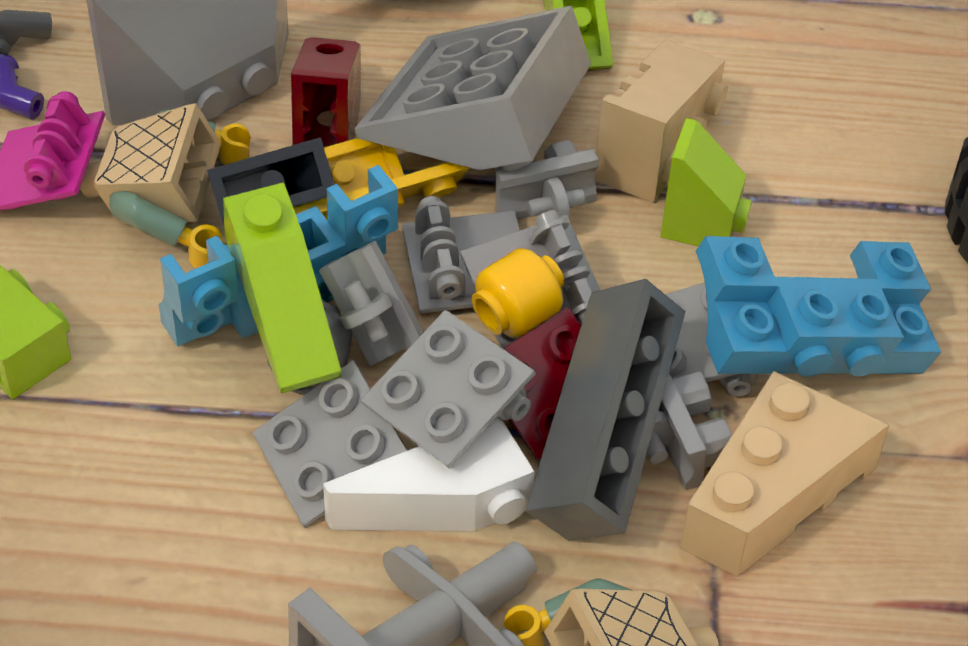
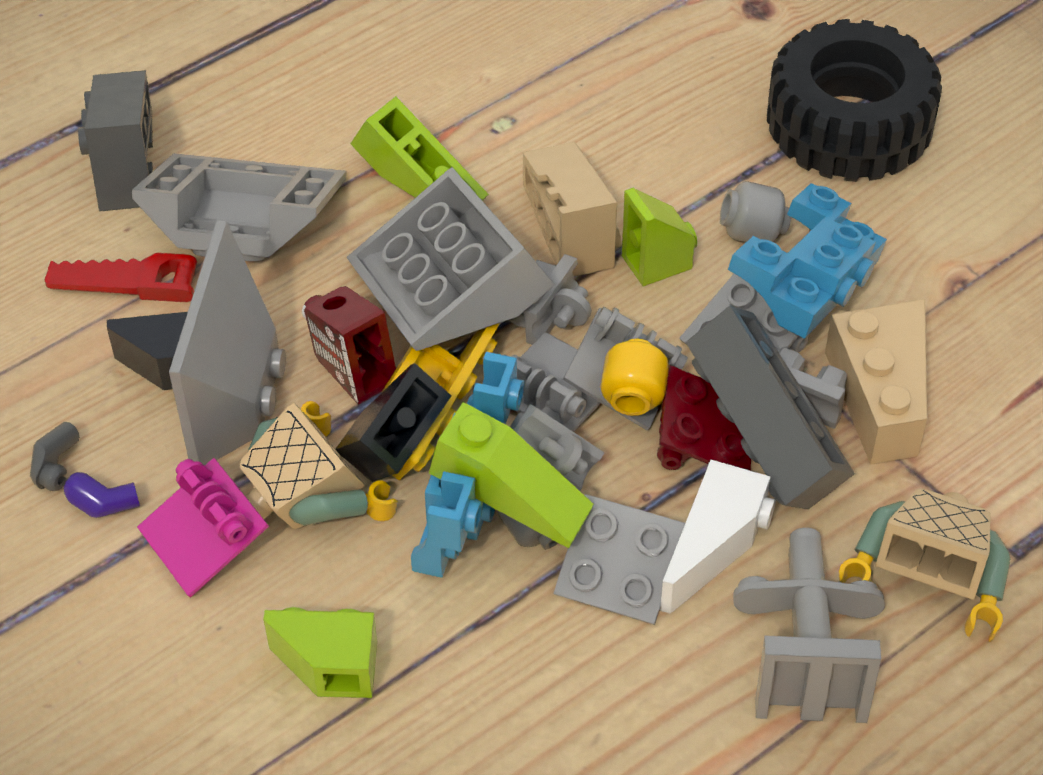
camera: 40 degrees left, 0 degrees up
(450, 389) = (675, 463): light grey hinge -> none
(828, 235) = (755, 212): none -> light grey head

